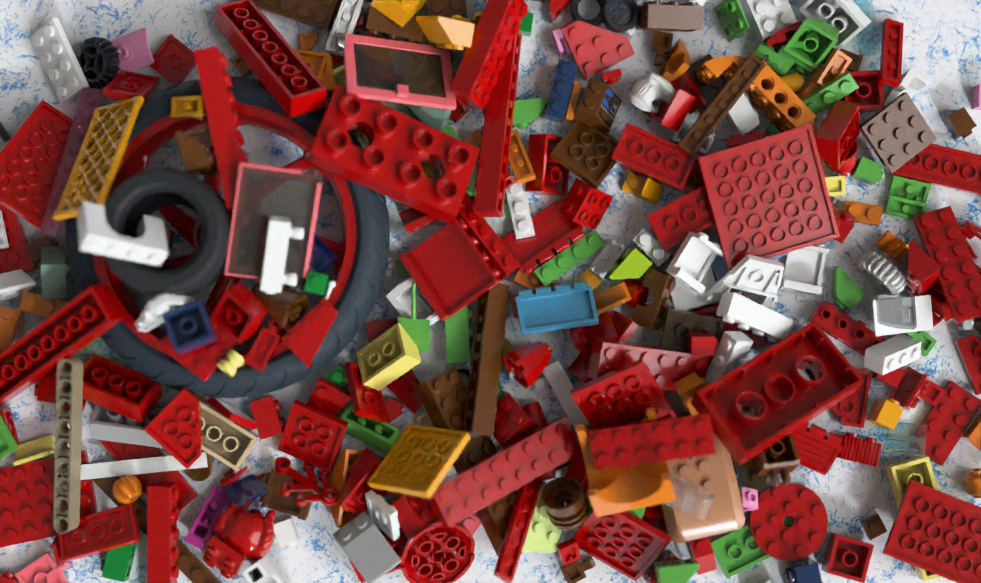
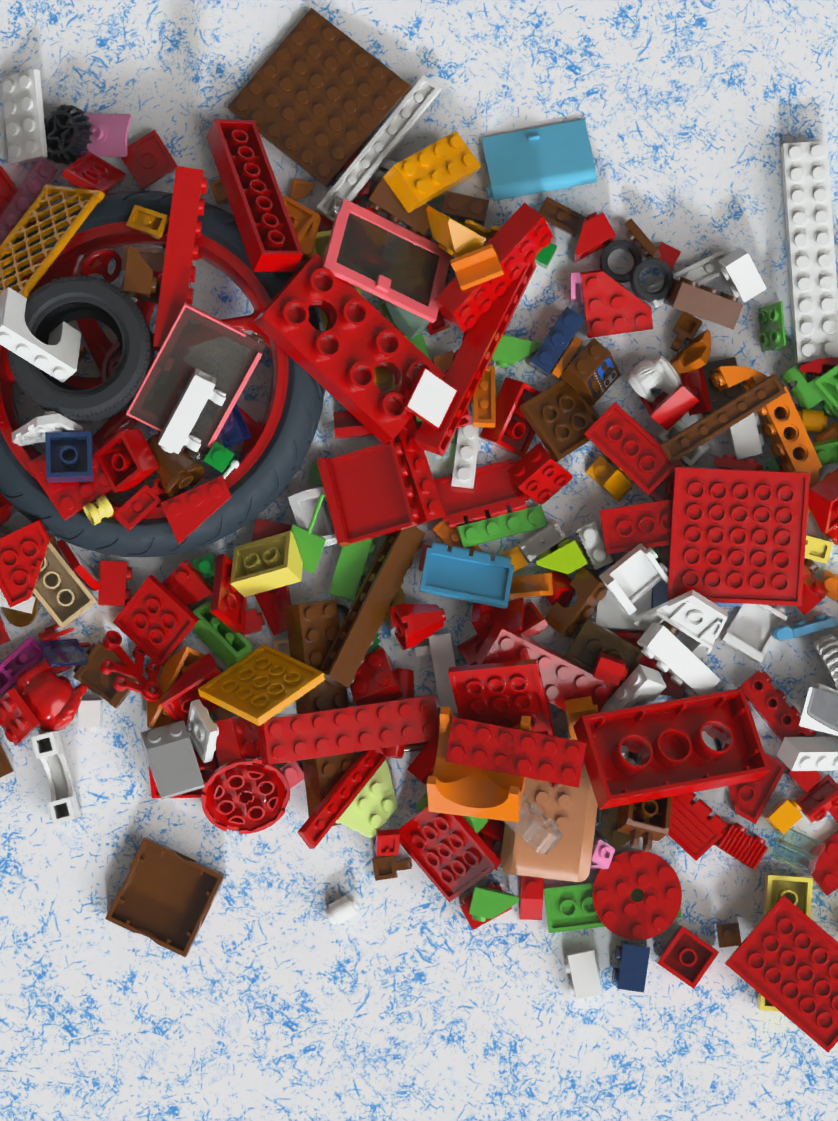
camera: 25 degrees right, 0 degrees up
(159, 156) = (98, 263): none -> red piece
(474, 172) = (429, 398): none -> white tile
(475, 49) = (477, 267): none -> orange panel
(565, 502) = (401, 787): reddish brown wheel -> none
(611, 77) = (617, 345): red plate -> none
(845, 253) = (802, 627): none -> dark azure hinge
(845, 290) = (790, 668): bright green slope -> none

